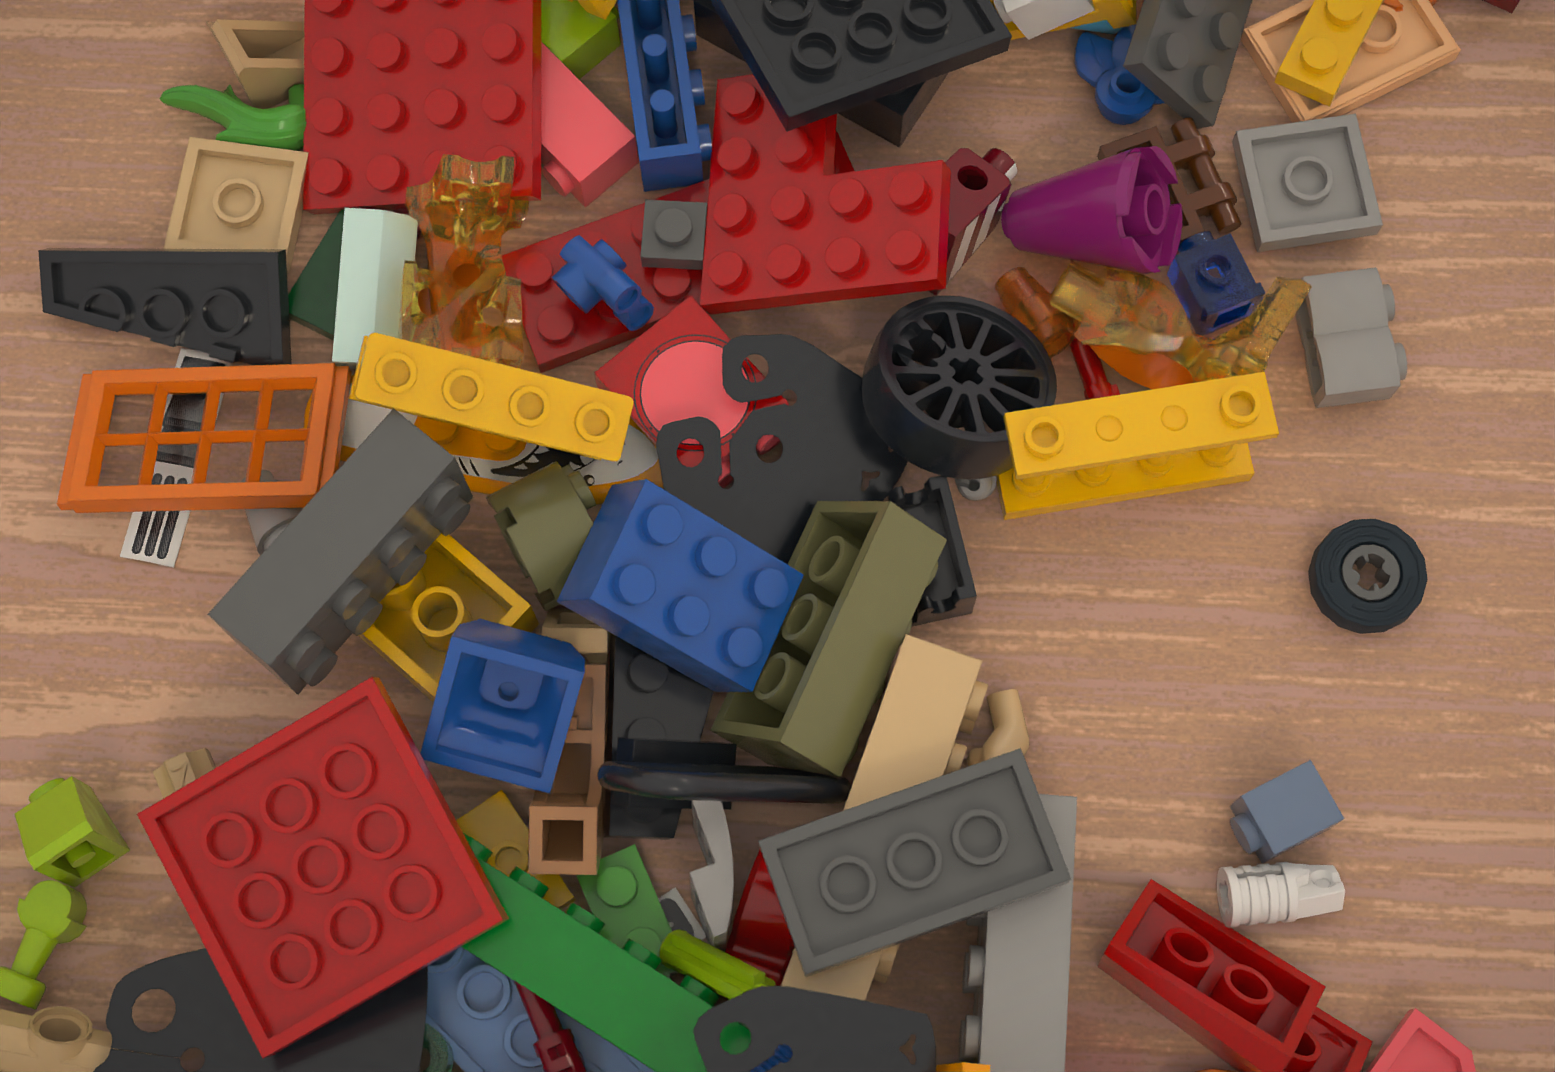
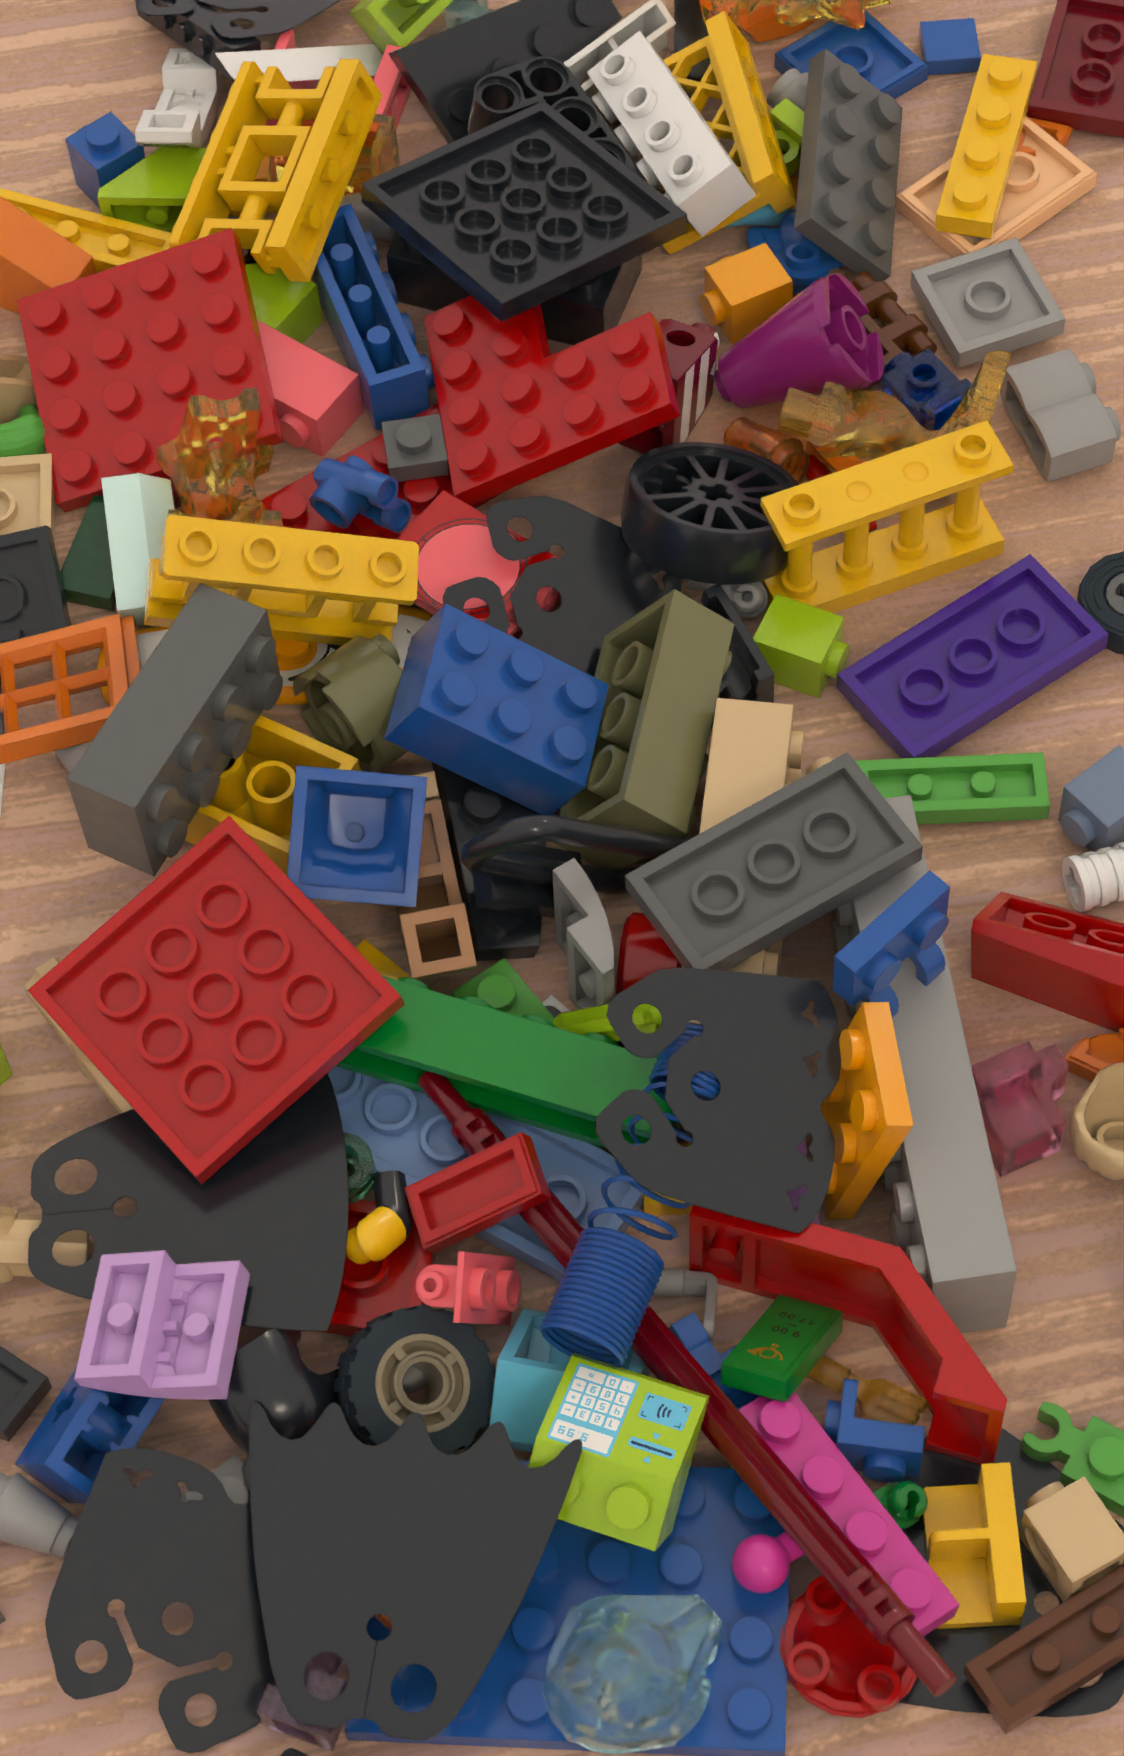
camera: 10 degrees left, 15 degrees down
(1015, 554) = (802, 645): none -> lime brick
(1036, 985) = (901, 931): none -> blue plate
(1058, 117) = (744, 291): none -> light orange brick
(1129, 756) = (966, 786): none -> bright green plate
(1186, 610) = (972, 661): none -> dark purple plate

